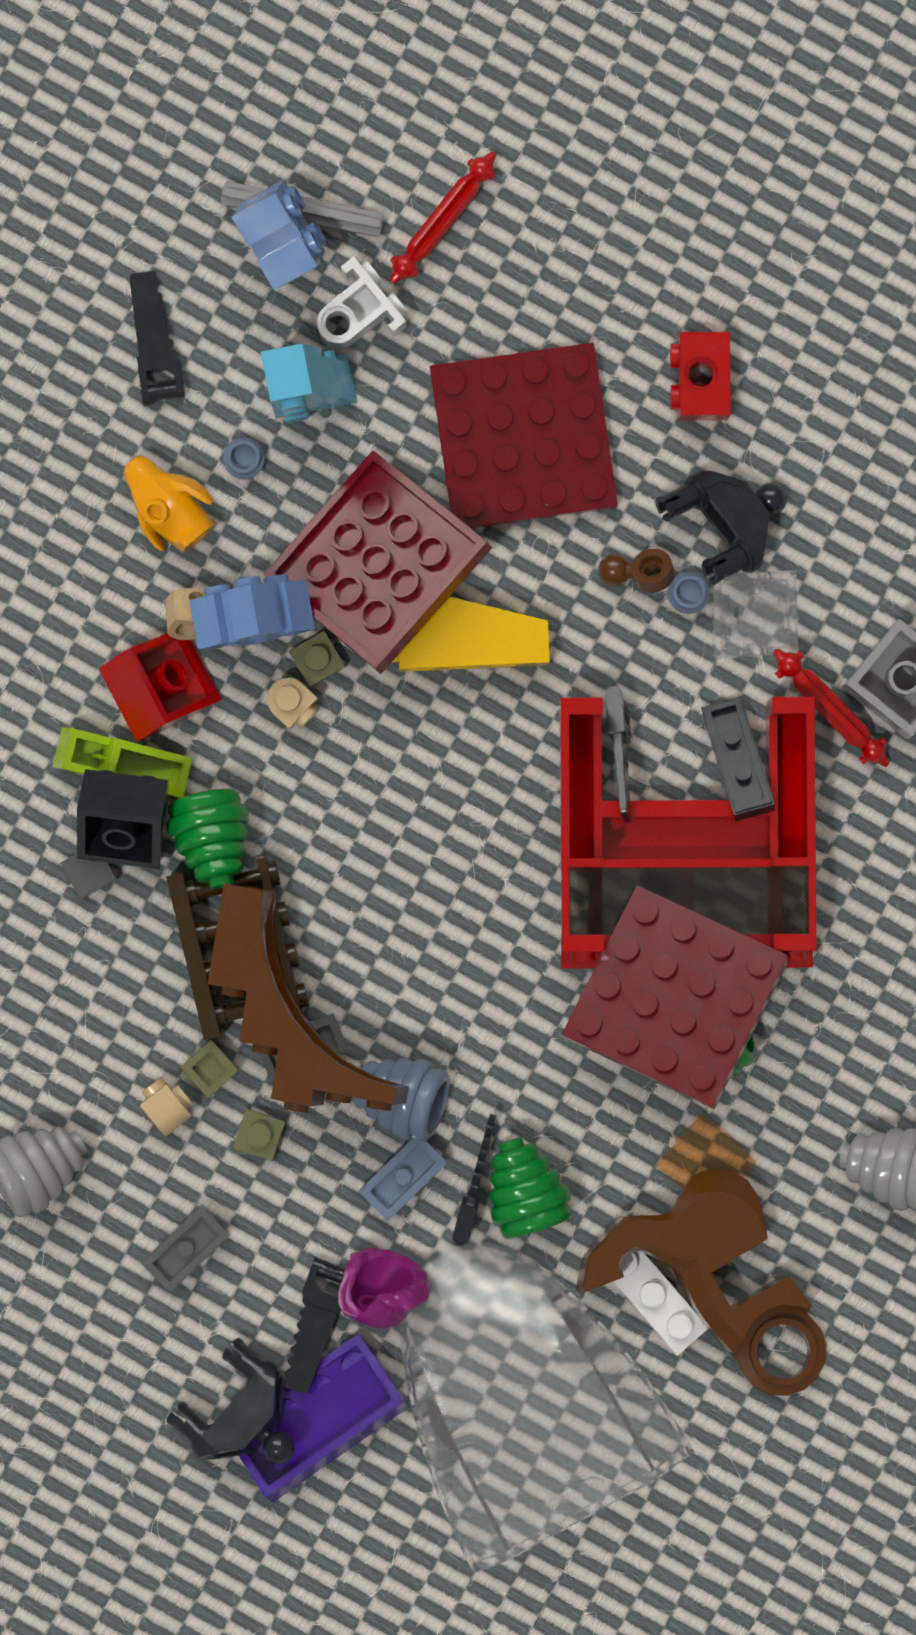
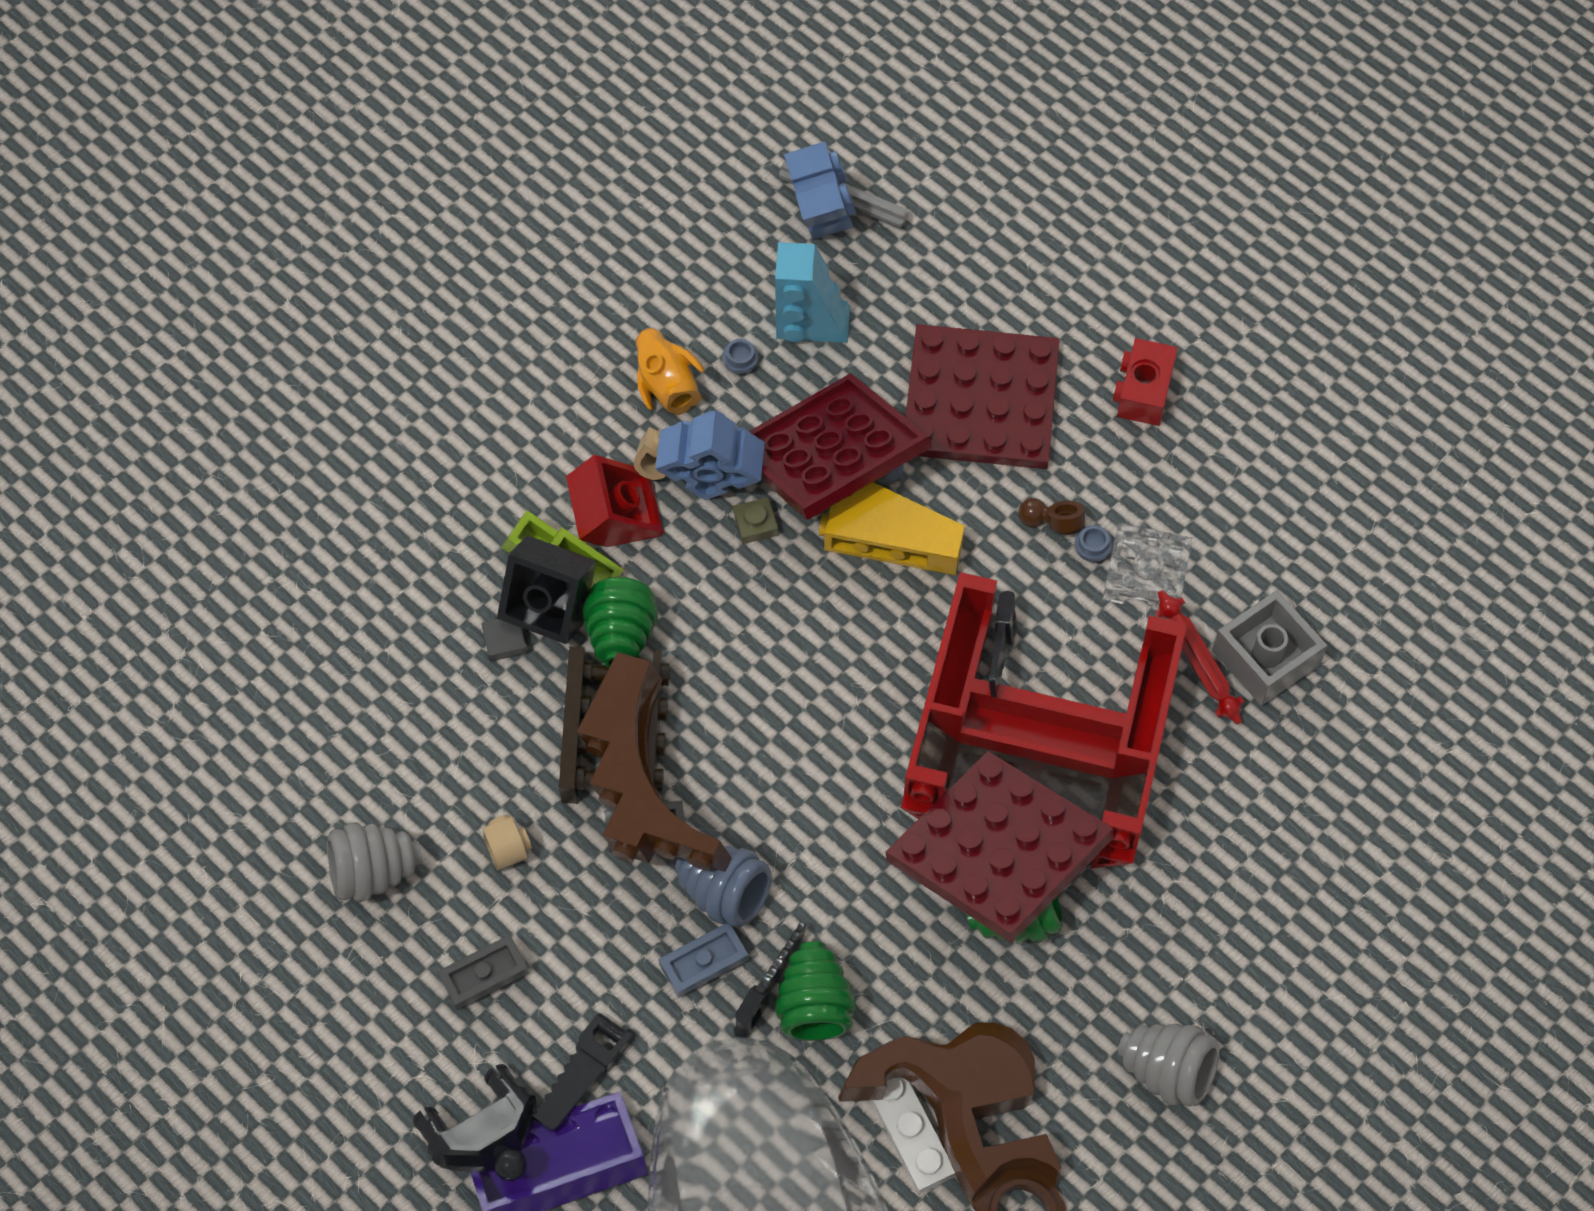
camera: 15 degrees right, 25 degrees down
(154, 340) = (693, 260): black piece -> none
(209, 1068) = (556, 822): olive plate -> none
(259, 1134) = (583, 893): olive plate -> none
(291, 702) = (723, 545): tan plate -> none
(362, 306) = (871, 268): white pin -> none
(382, 1287) = (652, 1050): magenta hair -> none
(443, 217) = (957, 225): red wheel -> none
(703, 1148) = (994, 1005): clear orange piece -> none
(733, 512) = (1145, 482): black connector -> none
(738, 759) = (1105, 677): black tile -> none

